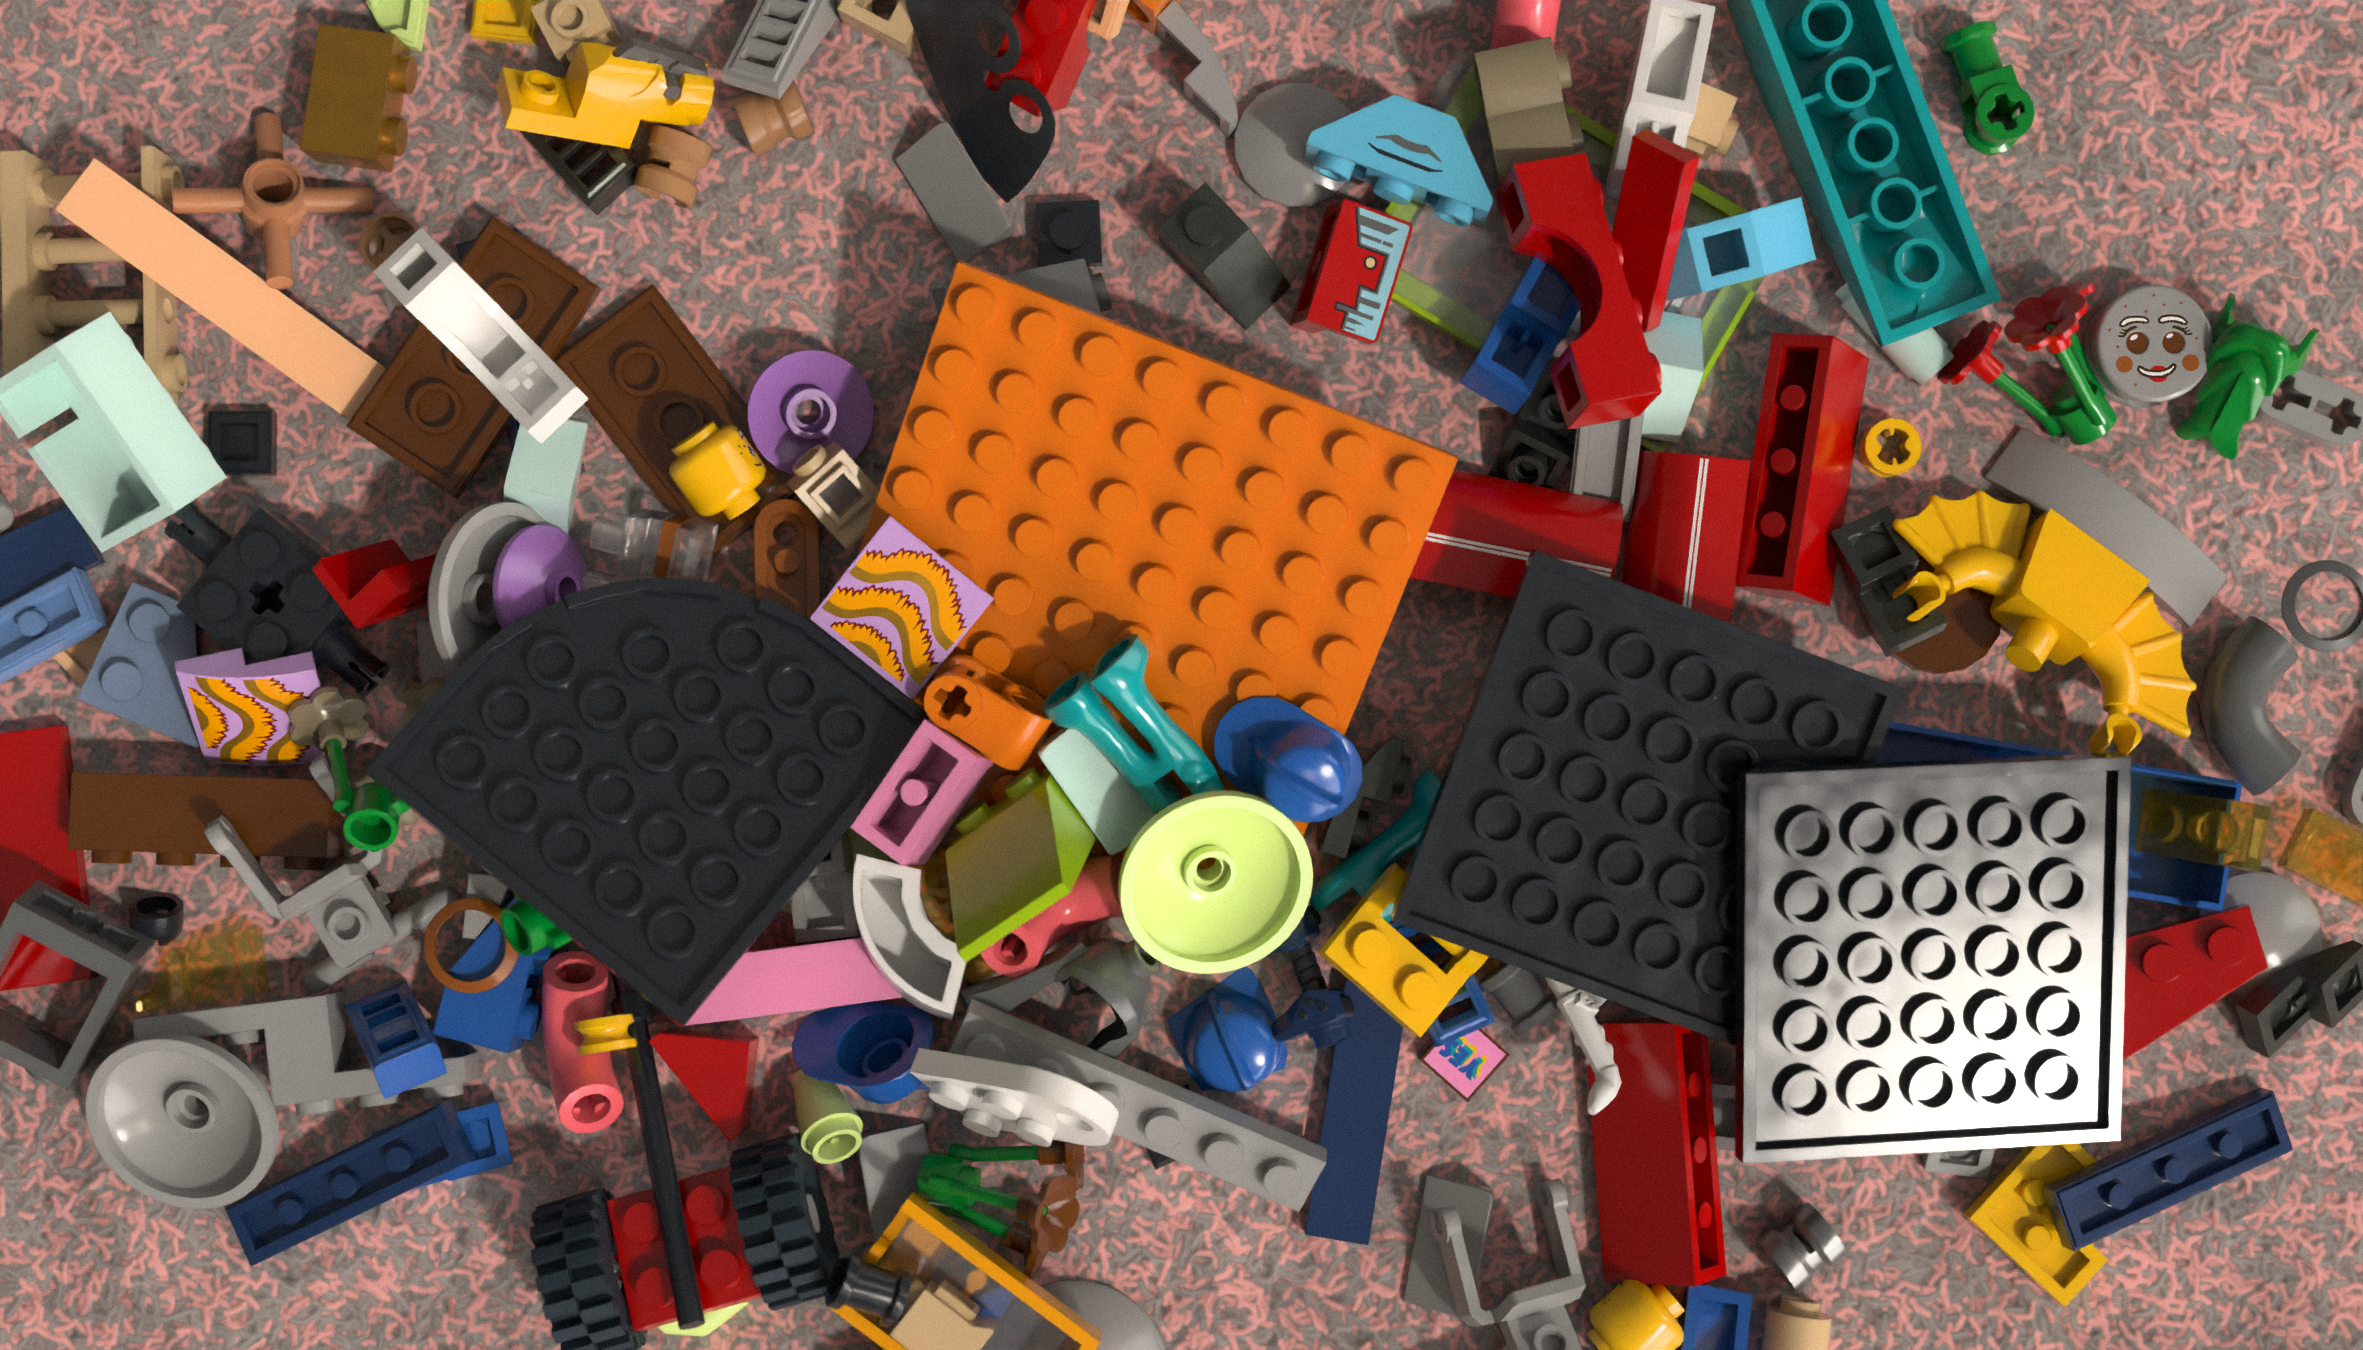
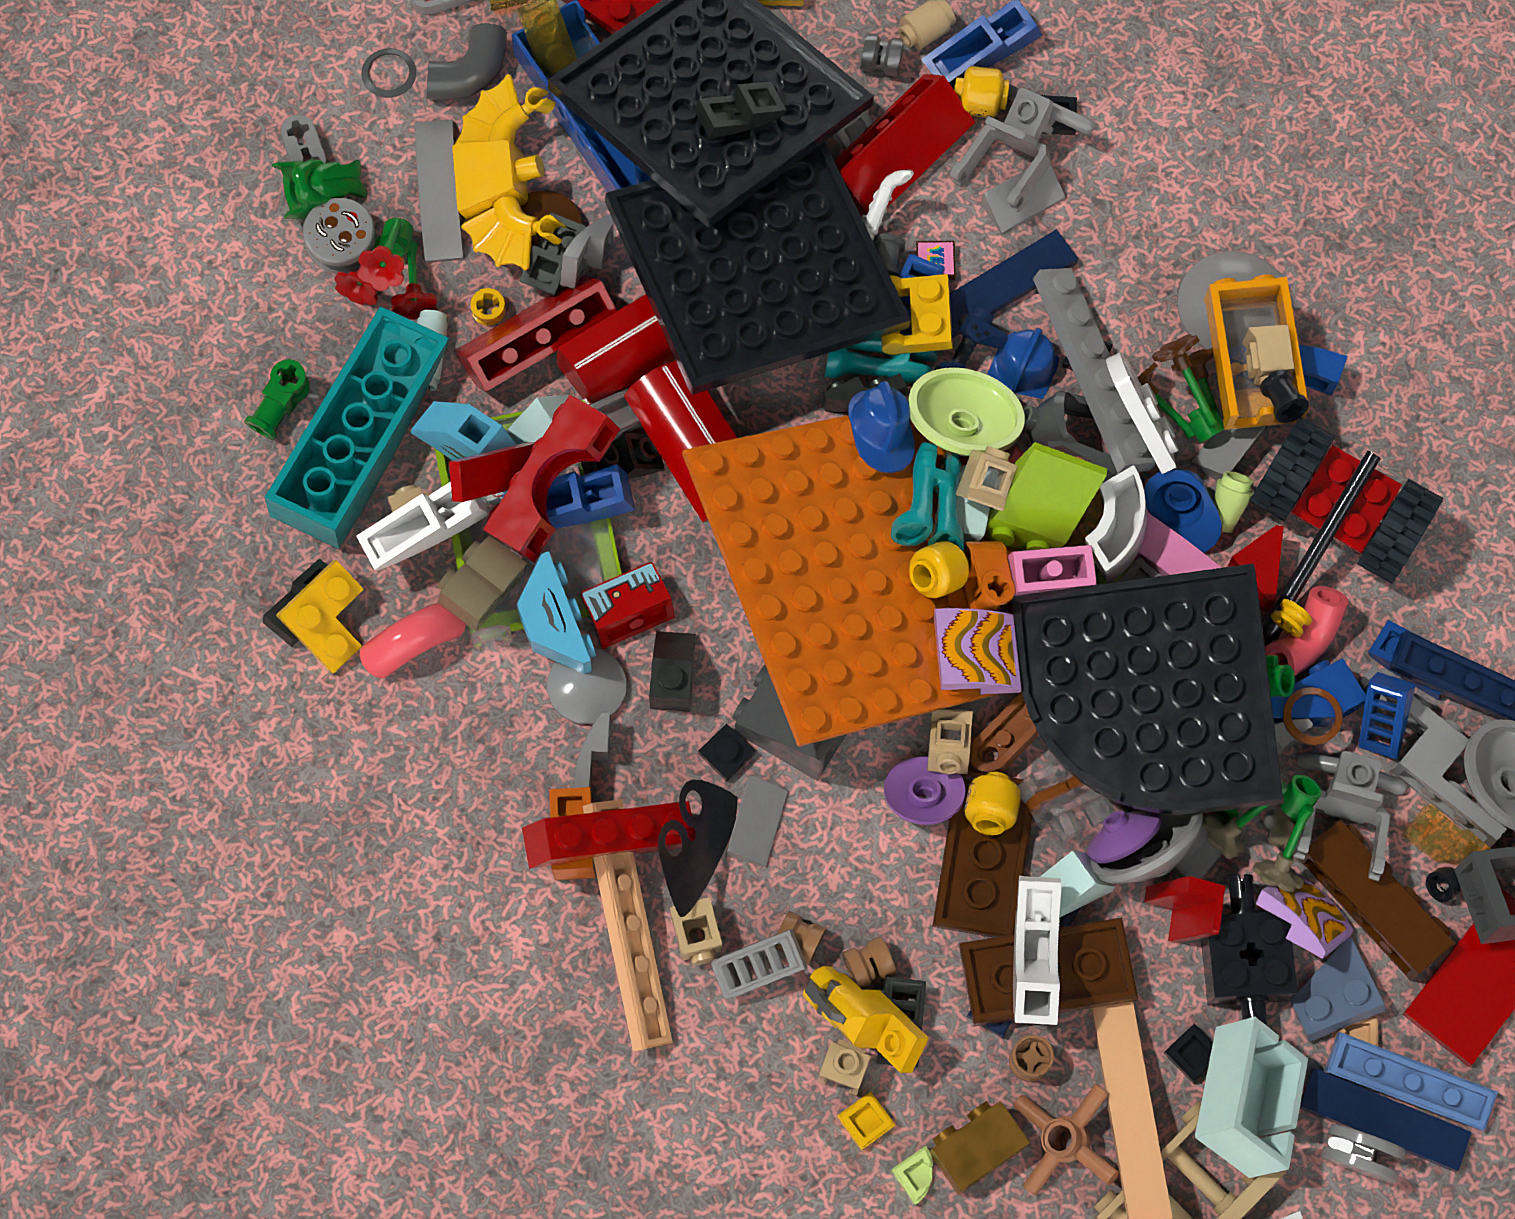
camera: 135 degrees left, 15 degrees down
(1039, 650) = (939, 569): none -> yellow head
(1093, 810) = (987, 478): none -> tan window
(1857, 632) = (587, 248): none -> light grey slope
(1865, 963) = (744, 110): none -> pearl dark grey slope

